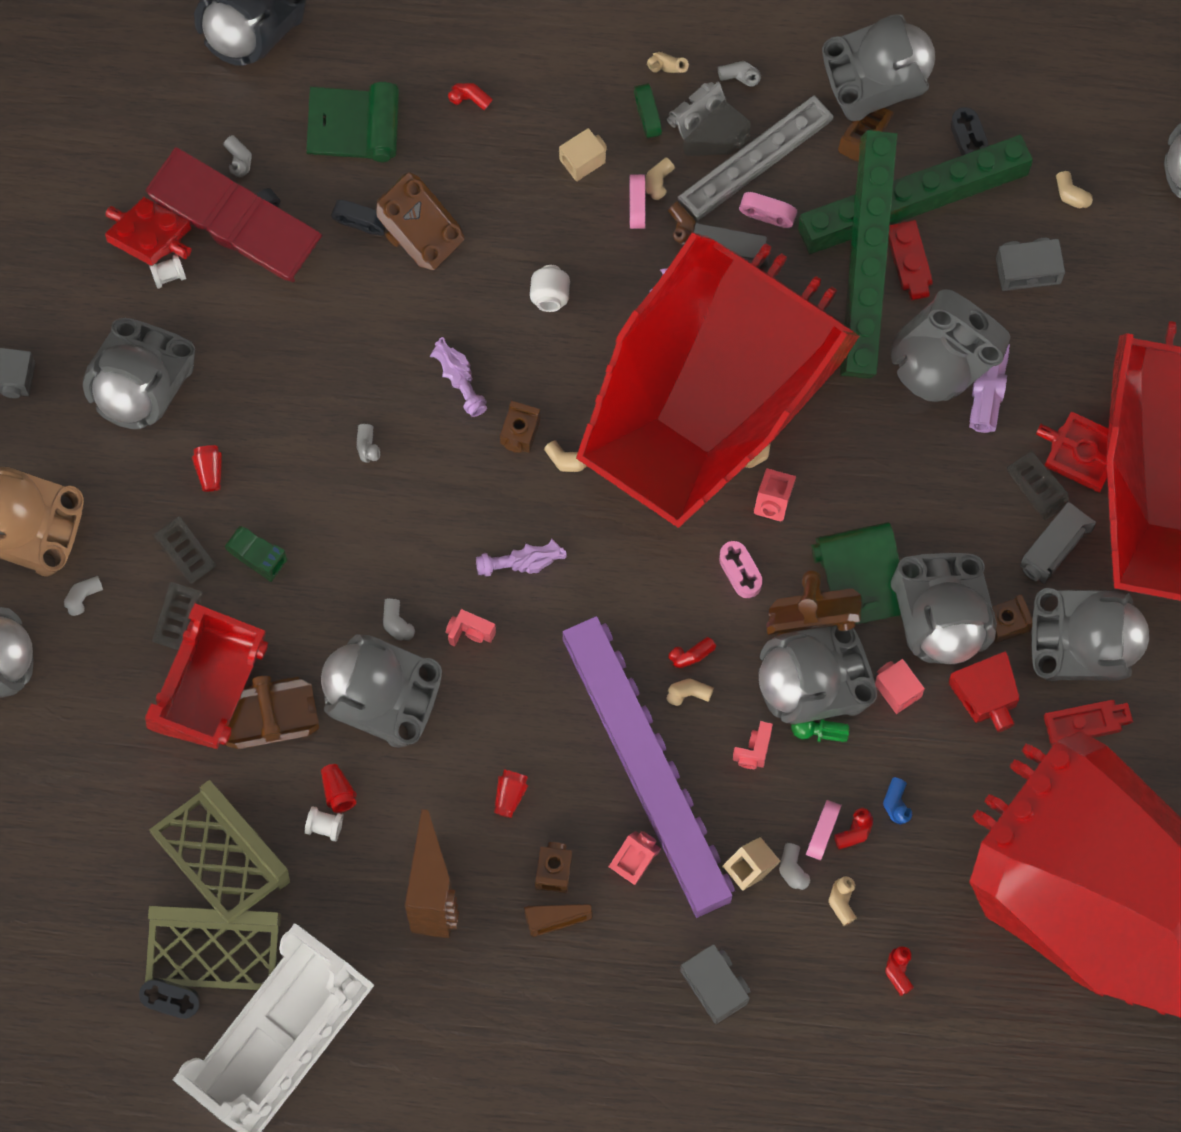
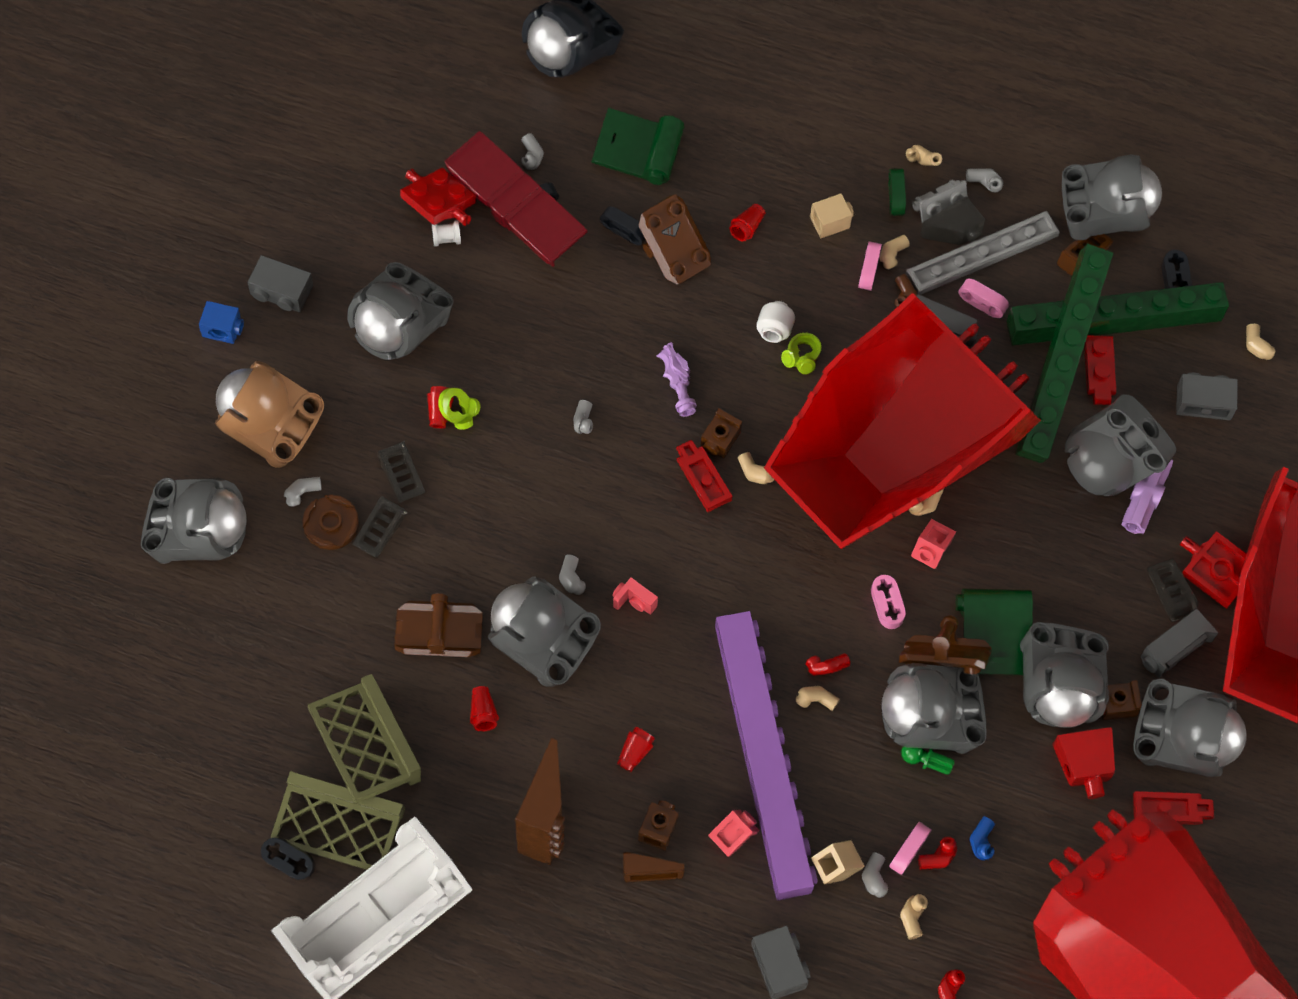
camera: 10 degrees right, 5 degrees down
(122, 622) = (330, 522): none -> reddish brown tile
(207, 678) = (391, 585): red windscreen -> none
(241, 460) = (469, 406): none -> lime piece
(256, 553) = (463, 489): dark green leg -> none
(324, 823) = (463, 737): white bush -> none
(469, 91) = (746, 142): red arm -> none
(493, 182) = (747, 222): none -> red cone
(511, 478) = (703, 476): none -> red hinge
(529, 559) = (701, 549): lavender piece -> none
(591, 328) = (806, 363): none -> lime piece
(759, 742) = (870, 756): coral bracket -> none
(898, 685) = (1007, 735): coral brick -> none

